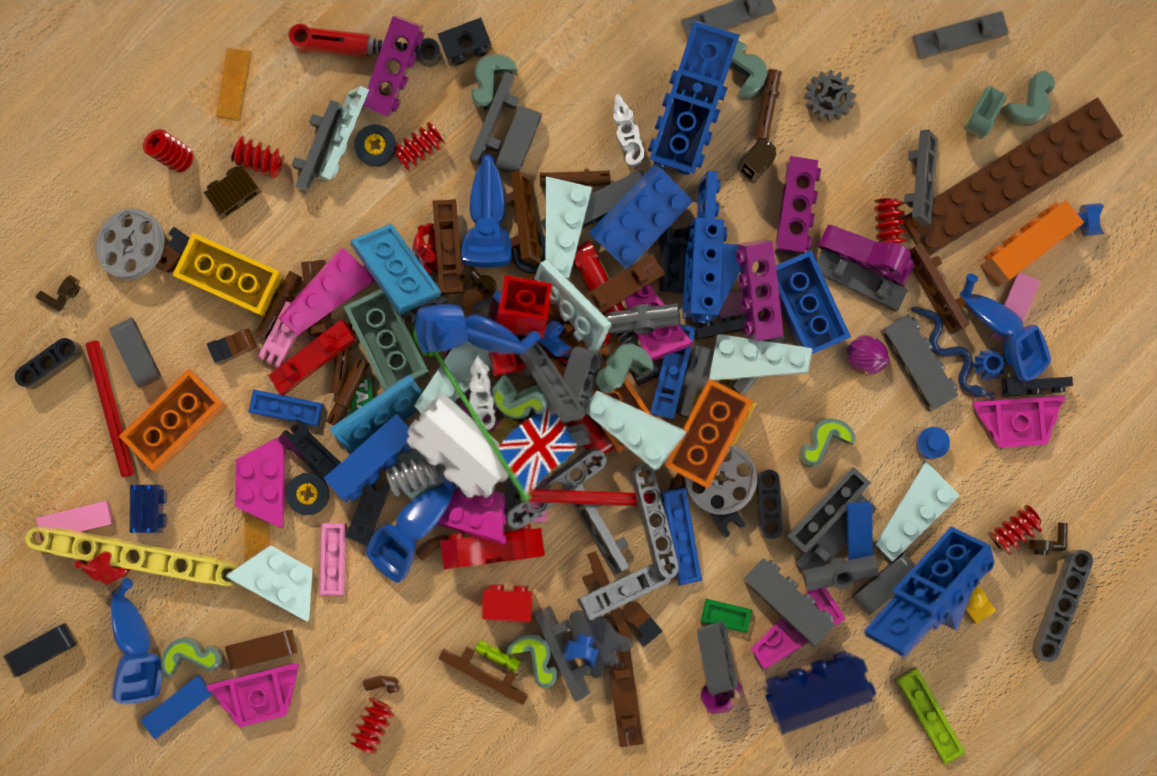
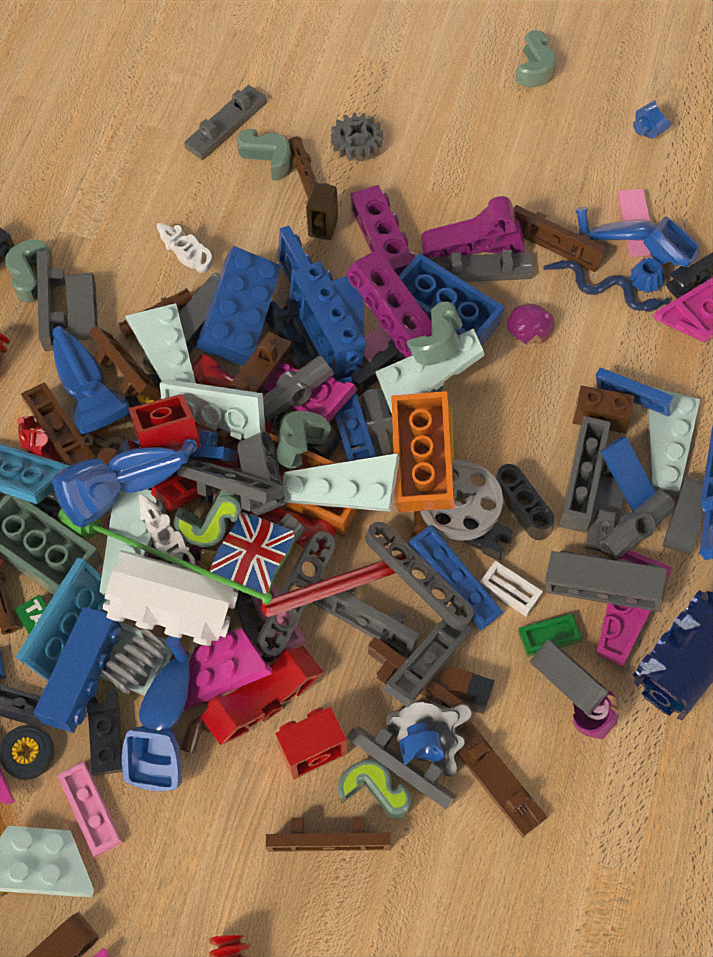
camera: 25 degrees left, 20 degrees down
(348, 392) = (20, 616): reddish brown pin -> none
(382, 681) = (214, 914): reddish brown arm -> none
(497, 655) = (331, 811): lime axle -> none
(693, 99) = (231, 181): blue wedge -> none
(727, 583) = (506, 598): none -> white tile
(782, 347) = (444, 338): none -> sand green animal
(820, 438) = (533, 415): sand green animal -> none
(877, 463) = (605, 406): none -> reddish brown brick
(889, 220) = (470, 198): red piece -> none
(910, 464) = (643, 394): none -> blue tile
(919, 362) = (582, 305): dark grey brick -> none
(925, 159) = (474, 143): dark grey hinge -> none
(932, 443) = (643, 365): blue piece -> none
(960, 35) = (440, 45): dark grey hinge -> none
(984, 112) = (502, 86): sand green animal -> none
(1015, 175) = (561, 124): reddish brown plate -> none
(1026, 247) = (612, 158): orange brick -> none

